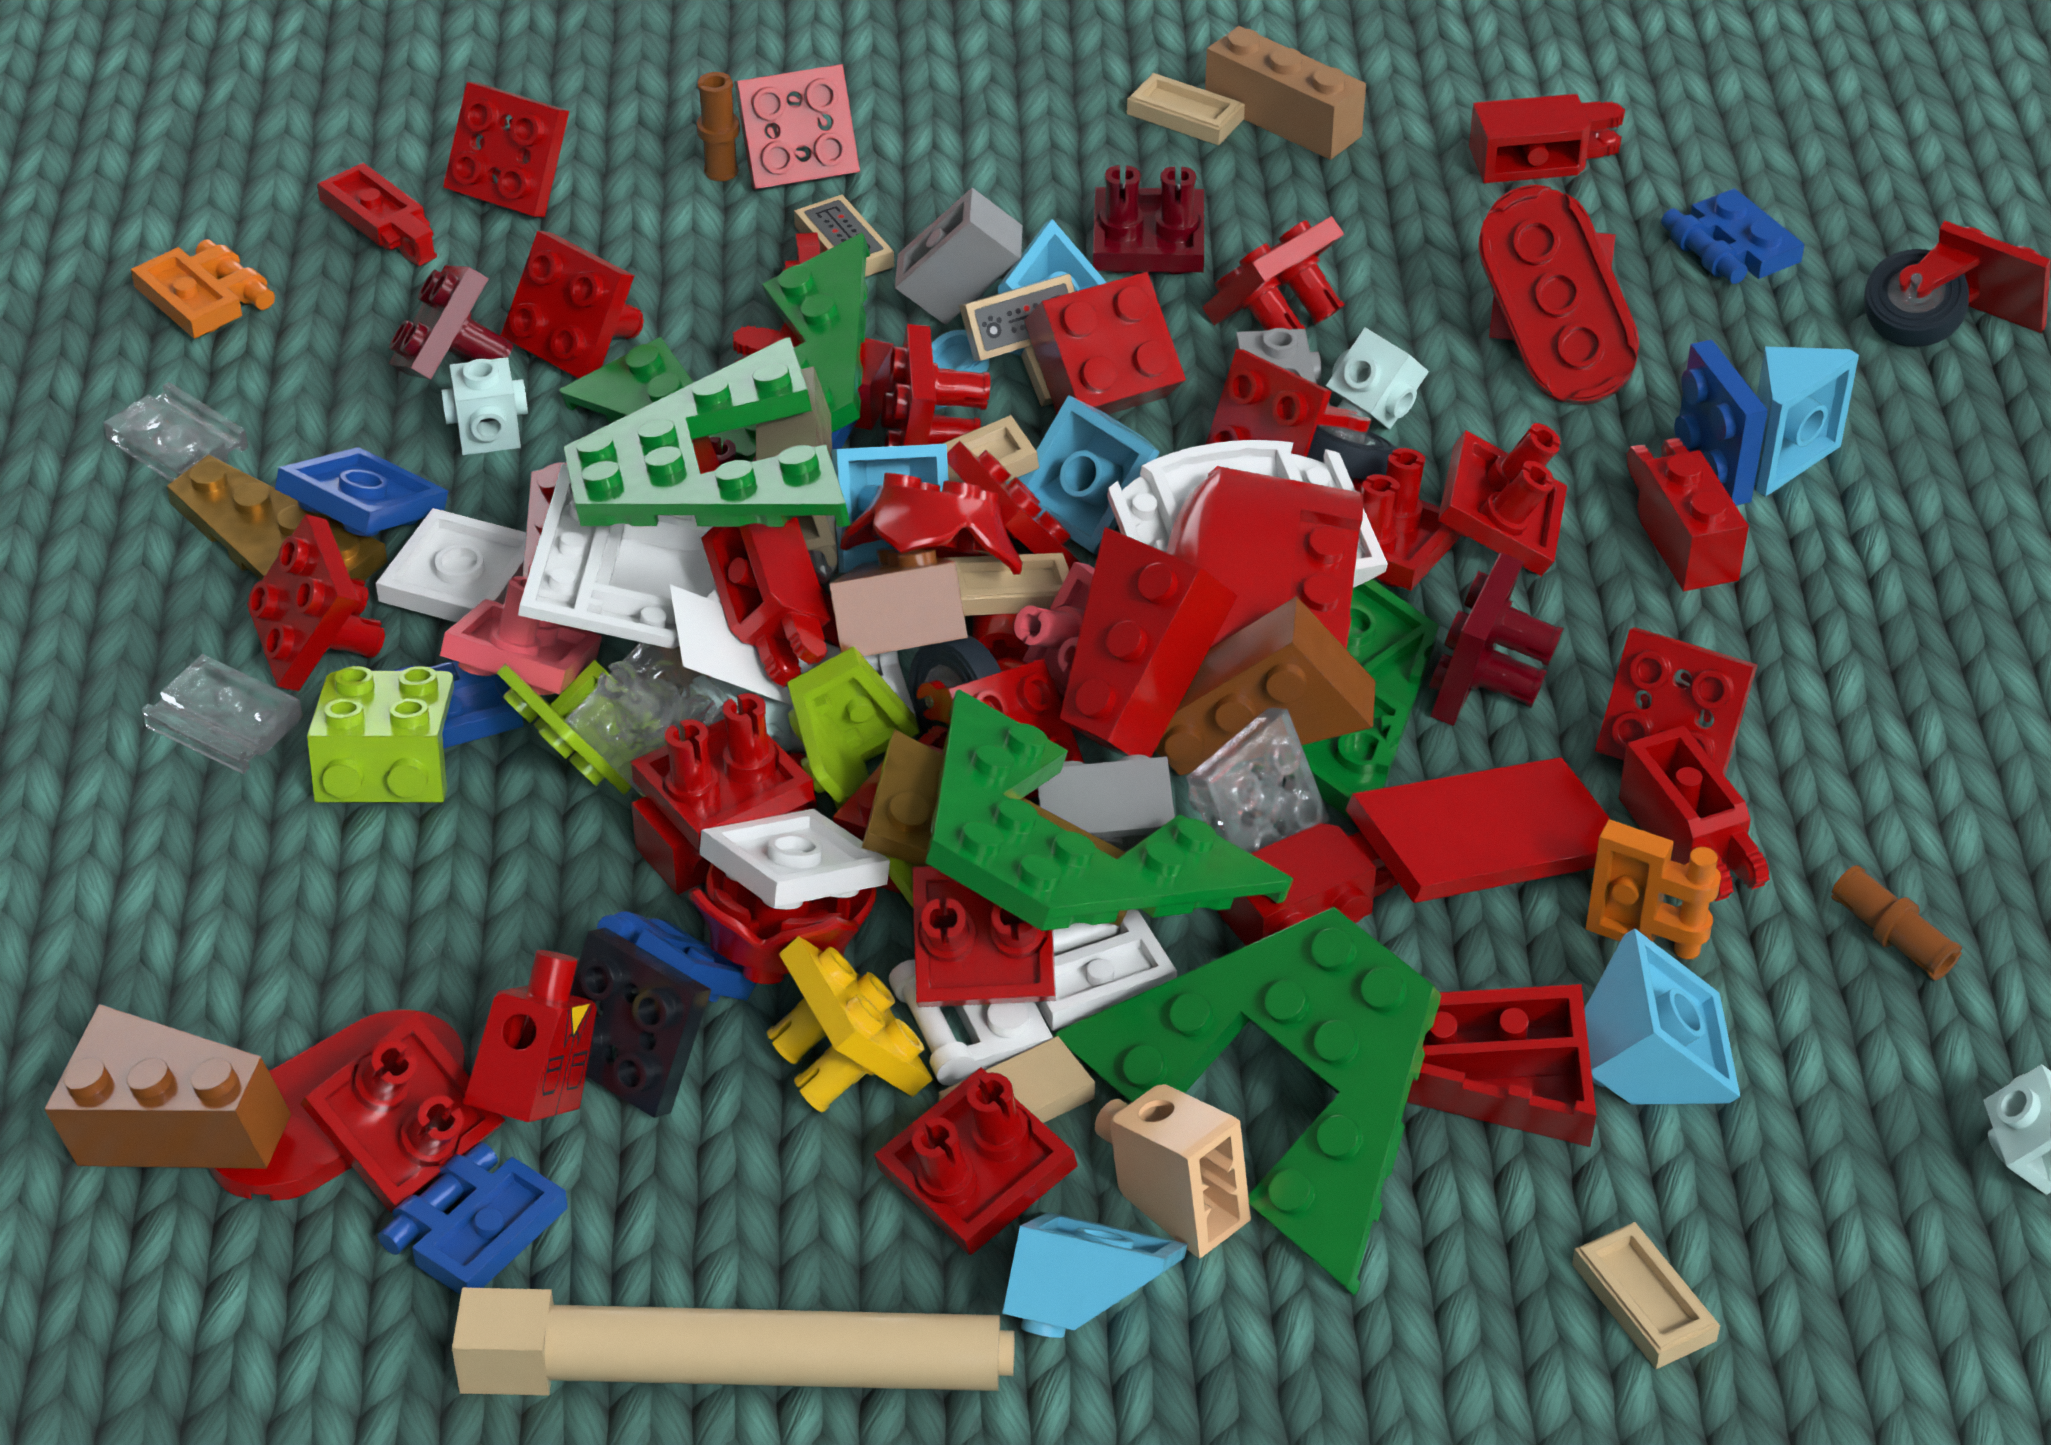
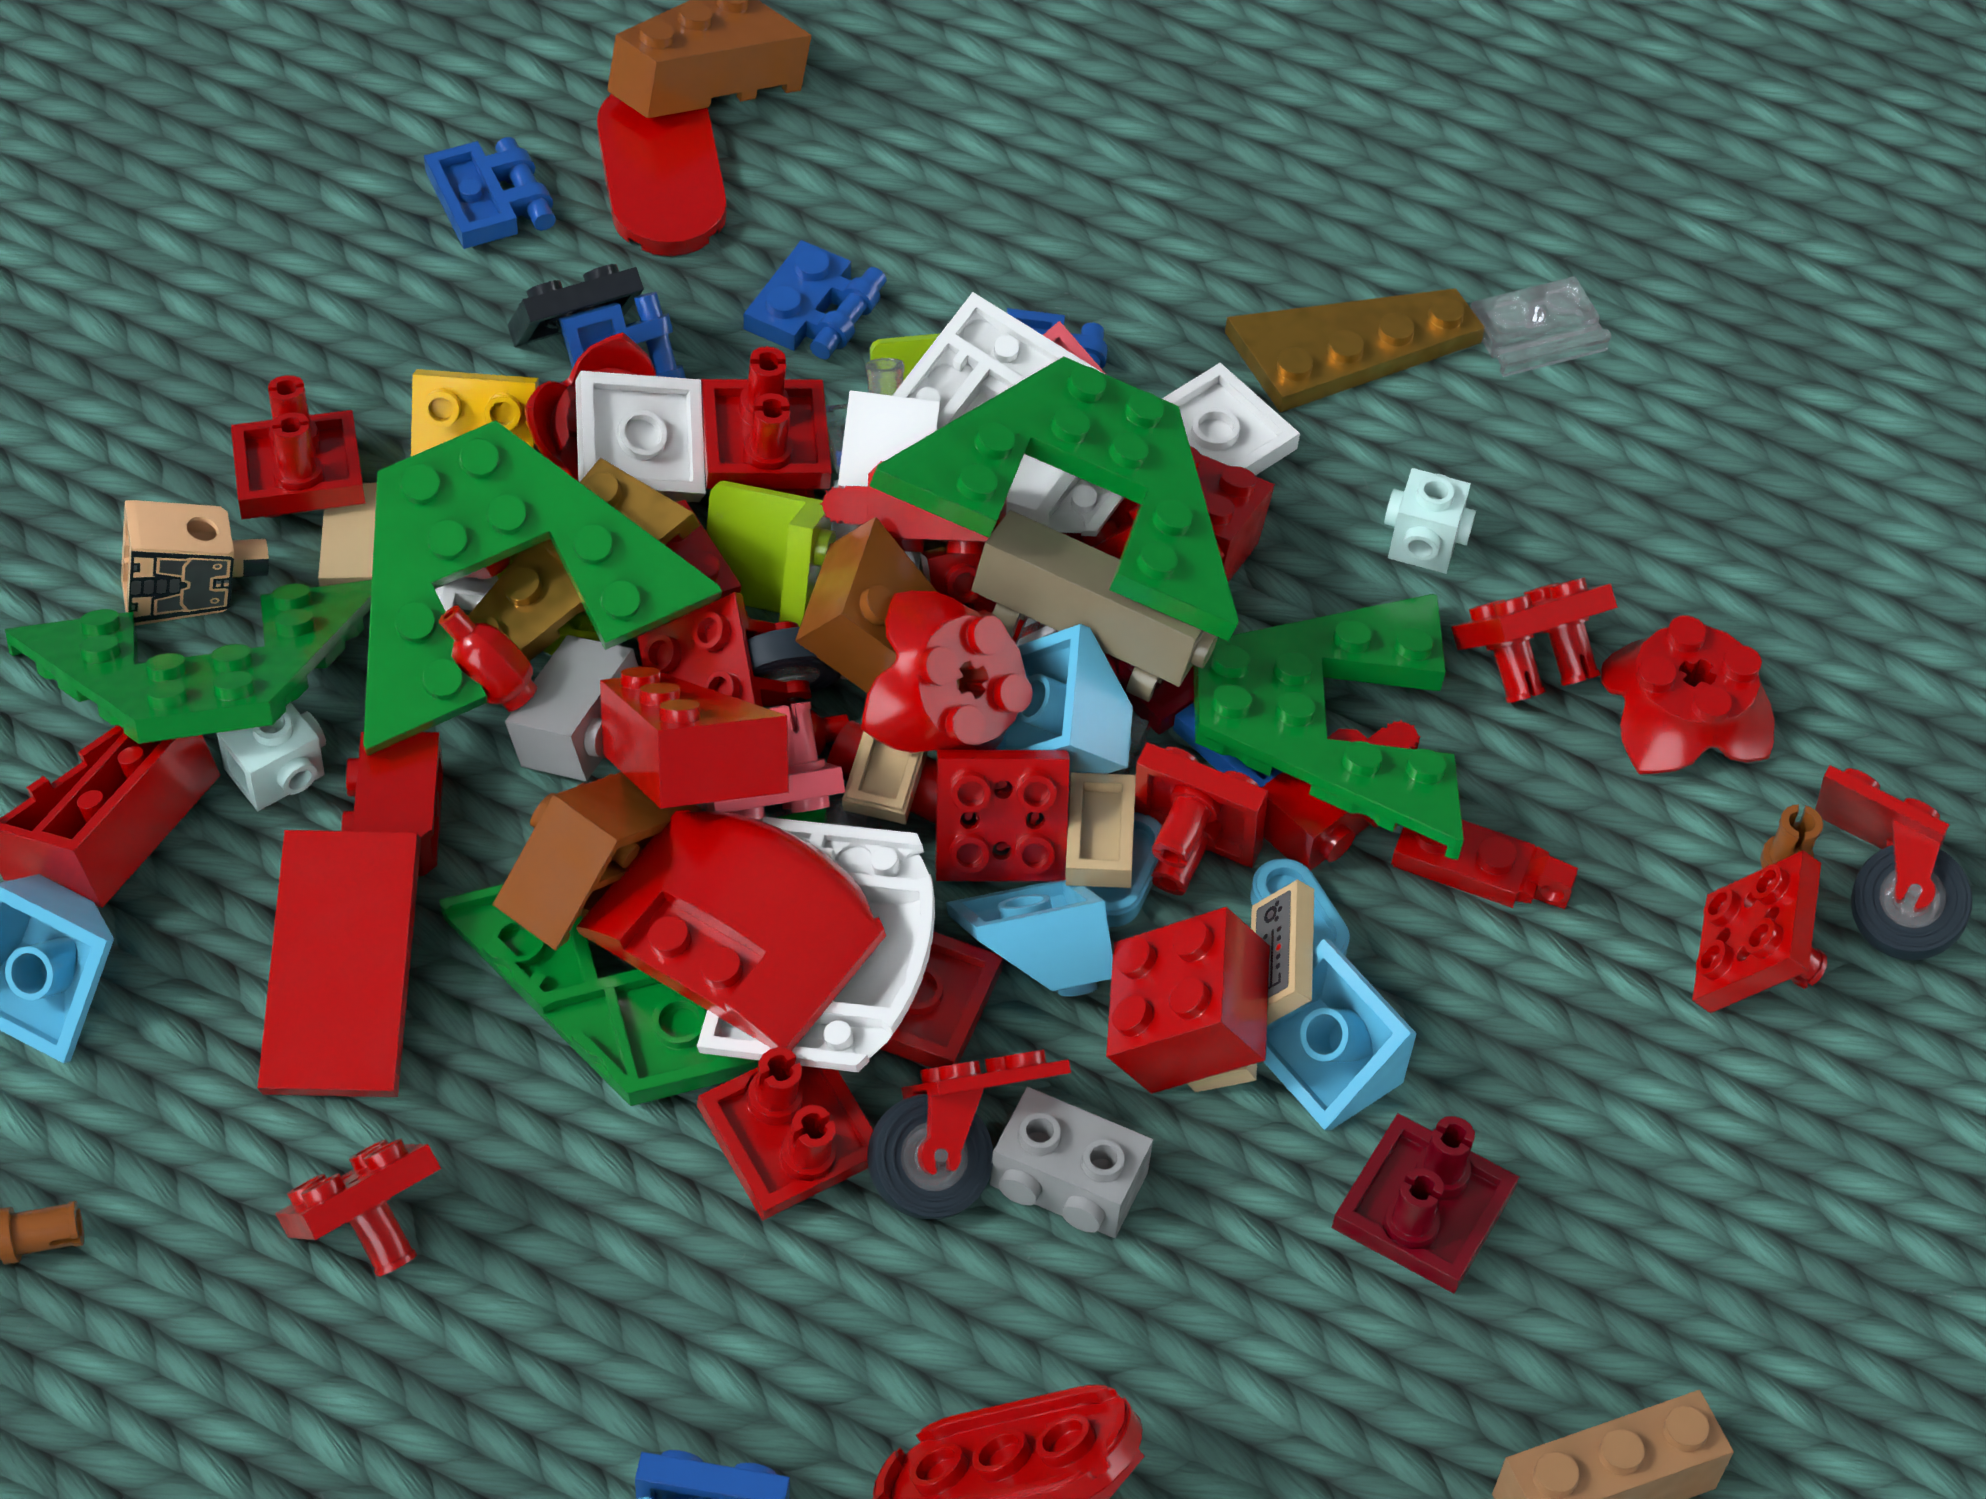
camera: 115 degrees right, 10 degrees up
(203, 288) = (1754, 389): orange plate -> none
(223, 713) = (1128, 232): clear plate -> none
(310, 606) = (1178, 287): red plate -> none
(360, 491) = (1350, 391): blue plate -> none
(380, 212) = (1813, 568): red hinge -> none
(380, 736) = (1035, 285): lime bracket -> none
(400, 1112) = (595, 166): red plate -> none
(445, 325) = (1558, 508): dark red plate -> none
(461, 917) = (802, 290): none -> blue plate
(523, 153) = (1842, 678): red plate -> none
(523, 1342) = (350, 173): tan brick -> none
(535, 1045) = (572, 226): red torso -> none
(578, 209) = (1688, 694): none -> red brick
(667, 87) = (1911, 893): none -> plate
(839, 221) = (1573, 931): tile -> none
(959, 256) = (1419, 953): light grey brick -> none
(1079, 1268) = (144, 460): medium azure slope -> none
(1131, 810) = (490, 659): none -> red plant
(1185, 109) = (1662, 1371): tan tile -> none
(1248, 803) = (494, 799): clear plate -> none
(1287, 263) = (1242, 1240): red plate -> none
(1376, 379) = (1010, 1240): light aqua brick -> none
(1475, 640) = (547, 1088): dark red plate -> none
(1507, 497) = (749, 1245): red plate -> none
(1631, 883) = (170, 1019): orange plate -> none
(1686, 798) = (232, 1128): red hinge -> none
(1688, 515) = (623, 1408): red hinge -> none

